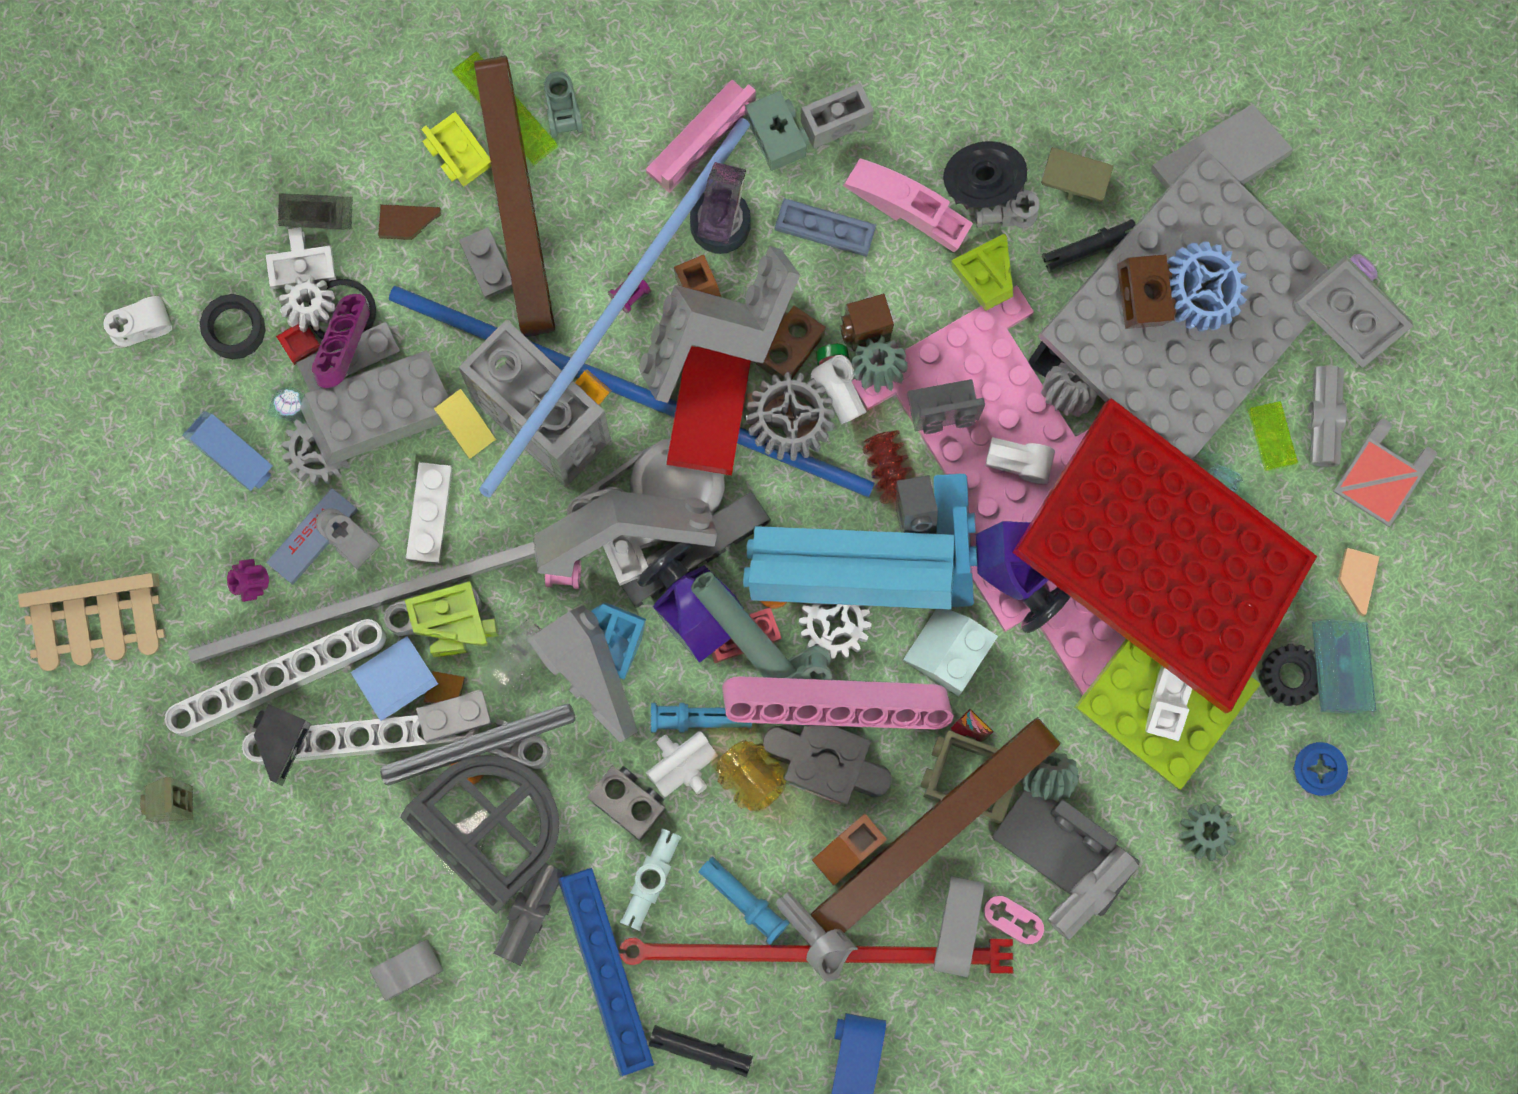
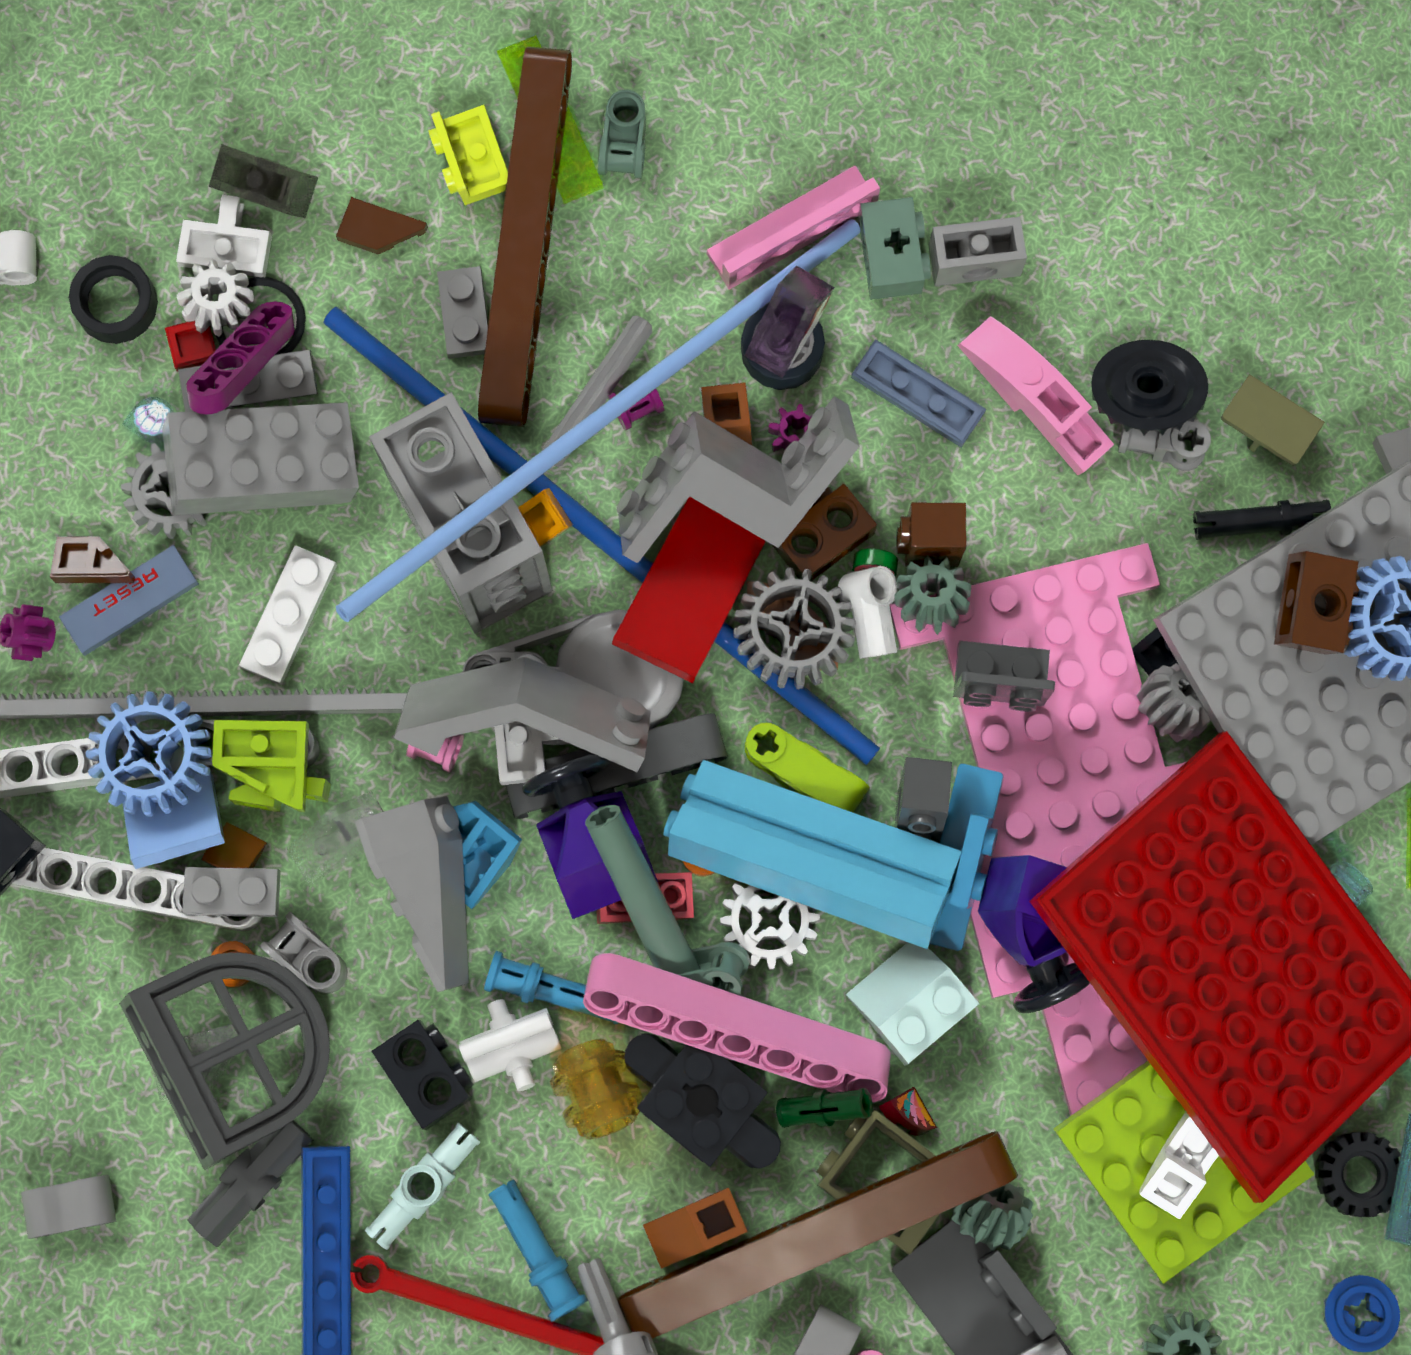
camera: 20 degrees right, 0 degrees up
(228, 451) = (55, 459): medium blue slope -> none
(274, 517) = (87, 561): none -> tile
(348, 539) = (173, 618): light grey piece -> none
(356, 650) = (132, 765): none -> light blue gear
(464, 423) = (367, 512): light yellow slope -> none
(477, 744) = (251, 938): axle -> none
(600, 285) = (605, 376): none -> light grey axle
(745, 270) = (796, 419): none -> magenta gear
(826, 511) = (805, 768): none -> lime piece
(887, 463) = (903, 726): clear red piece -> none
(896, 749) = (824, 1107): none -> dark green pin
(987, 272) = (1113, 514): lime wing -> none
(1029, 461) = (1094, 783): white piece -> none

